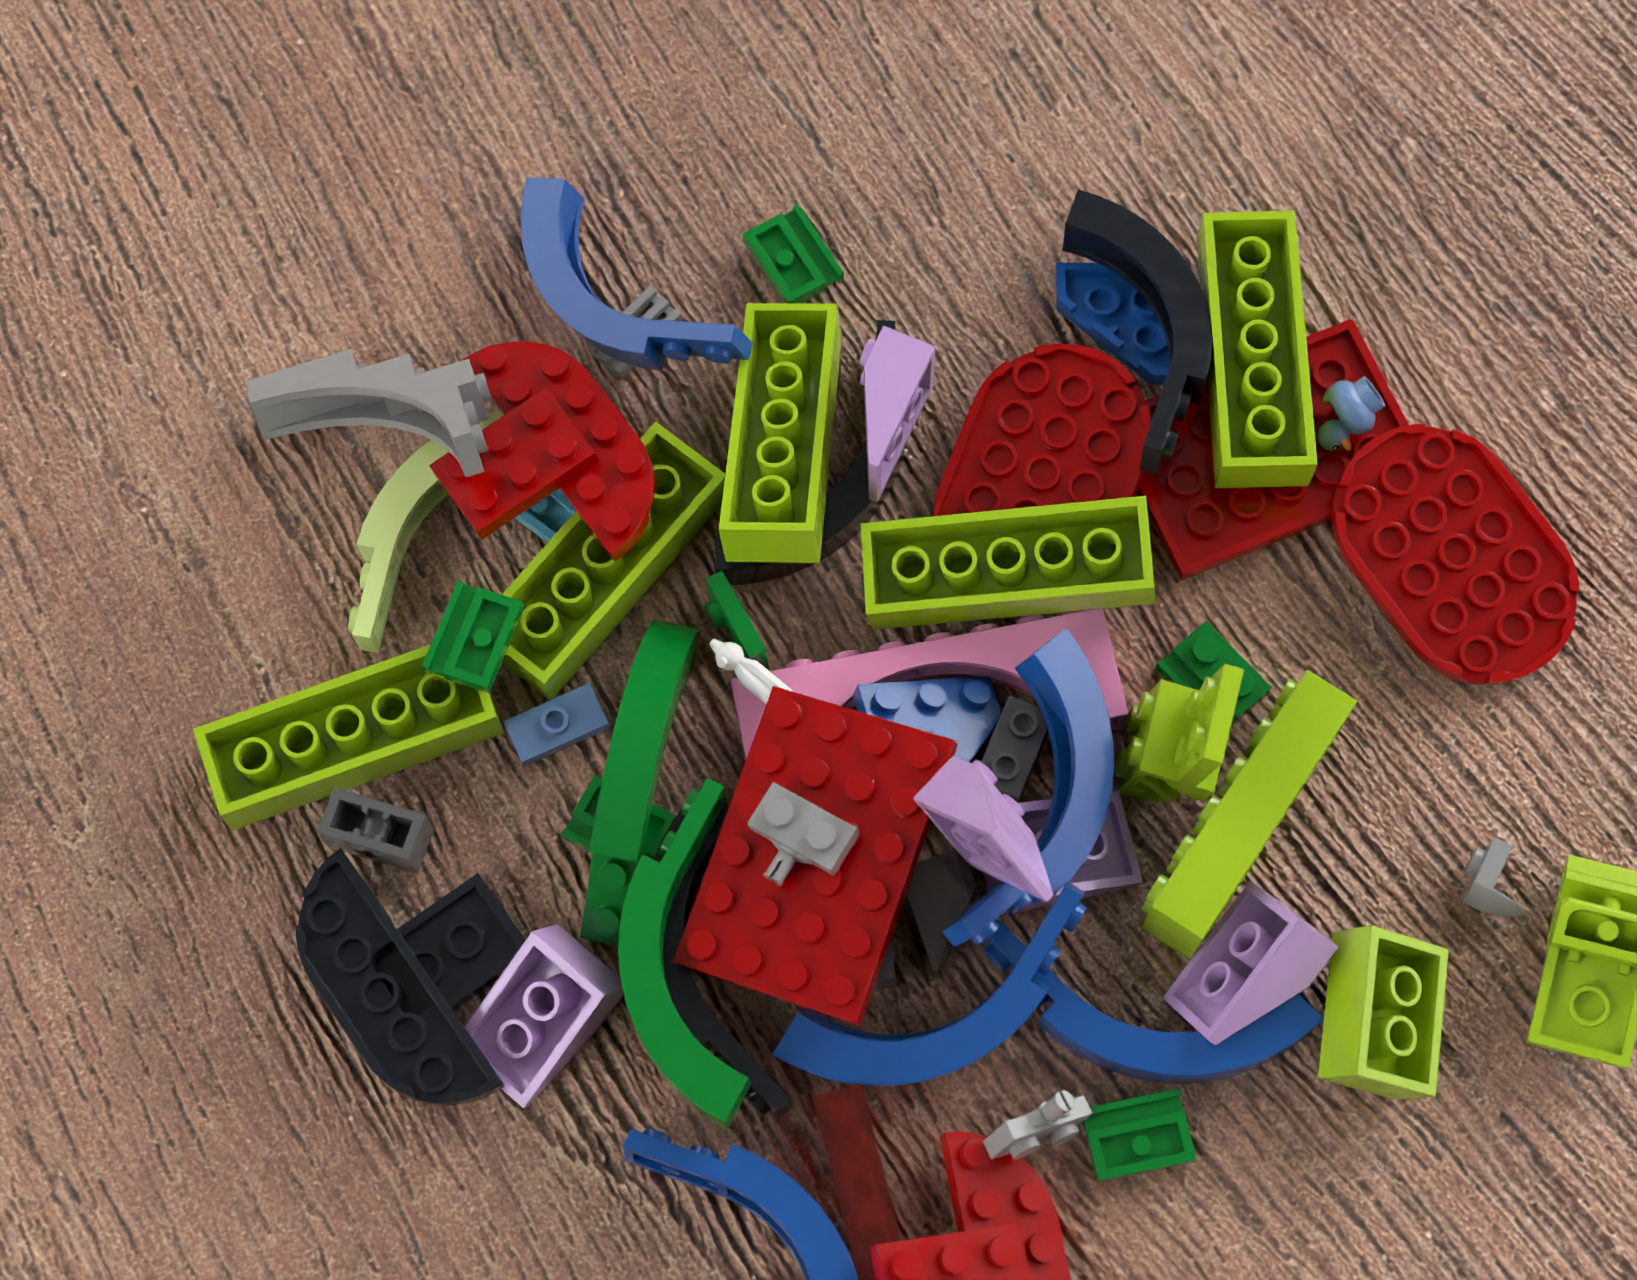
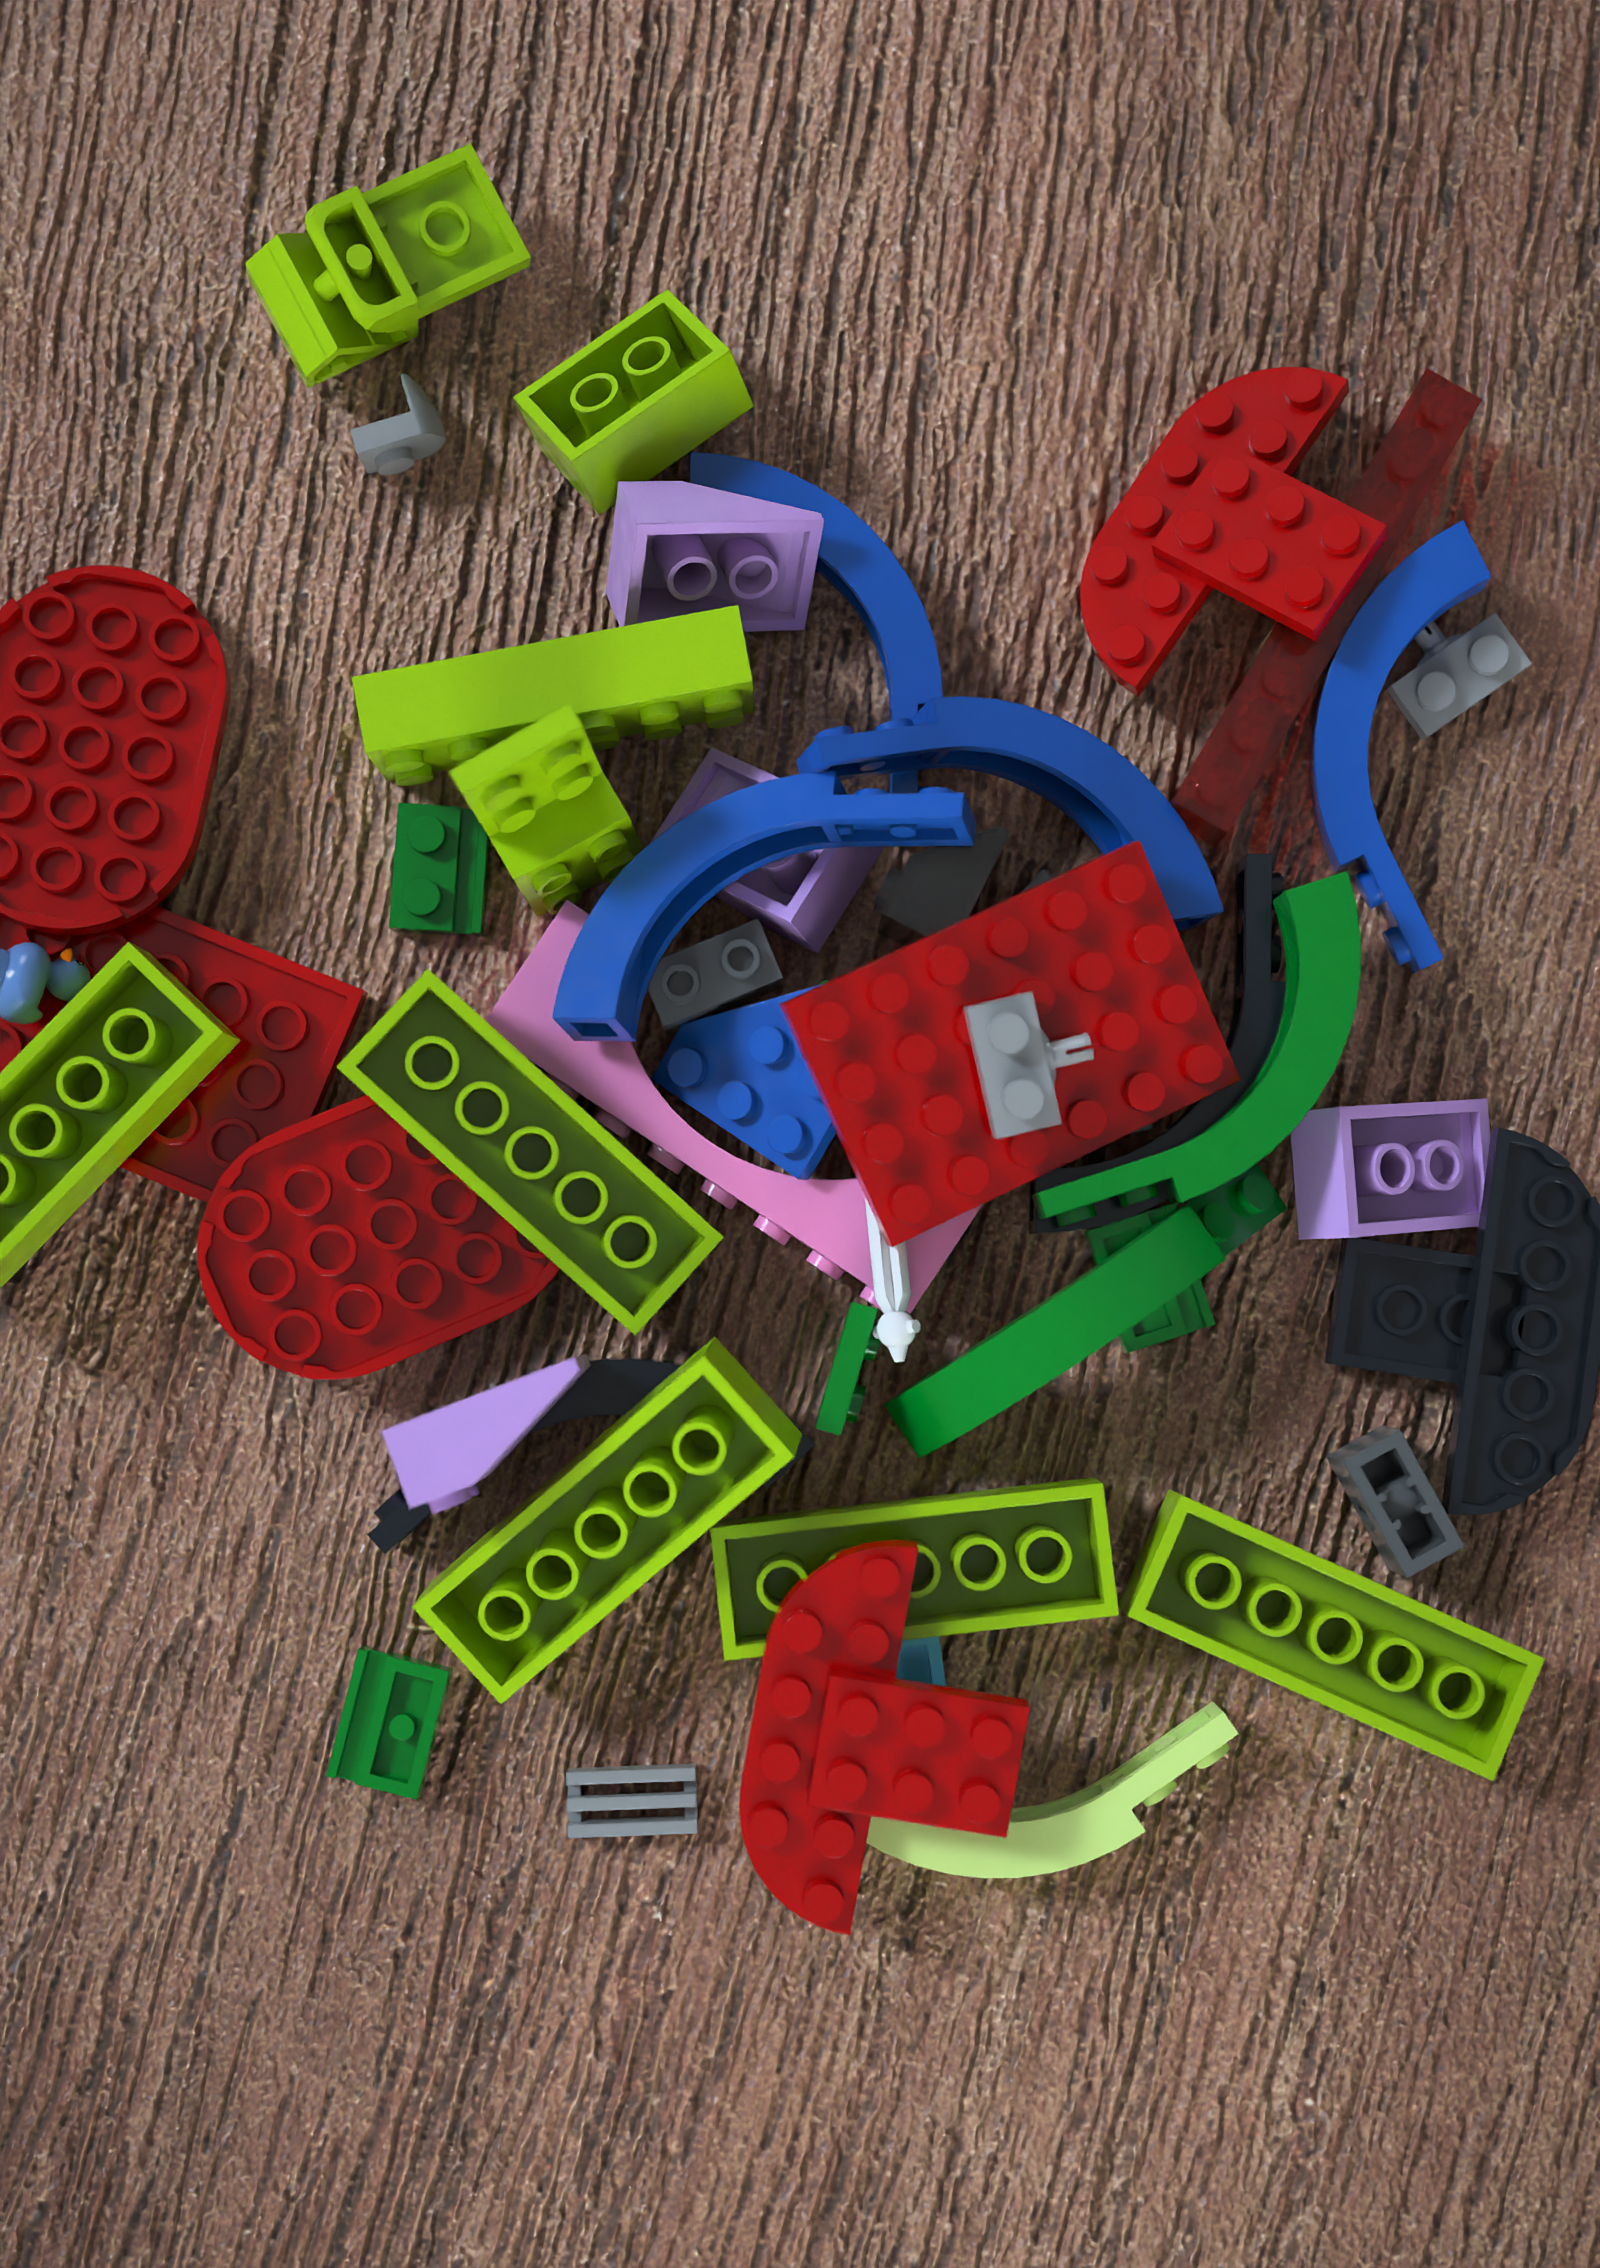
camera: 140 degrees left, 15 degrees up
(391, 394) = (1001, 2023): light grey arch -> none
(473, 637) = (1134, 1598): green plate -> none
(551, 249) = (644, 1961): arch -> none
(556, 724) = (1111, 1446): medium blue plate -> none
(985, 825) = (842, 881): lavender slope -> none
(1052, 1121) = (1030, 605): light grey plate -> none
(1114, 317) = (117, 1303): blue plate -> none
(1138, 1136) = (956, 528): green plate -> none
(1165, 280) = (53, 1301): black arch -> none

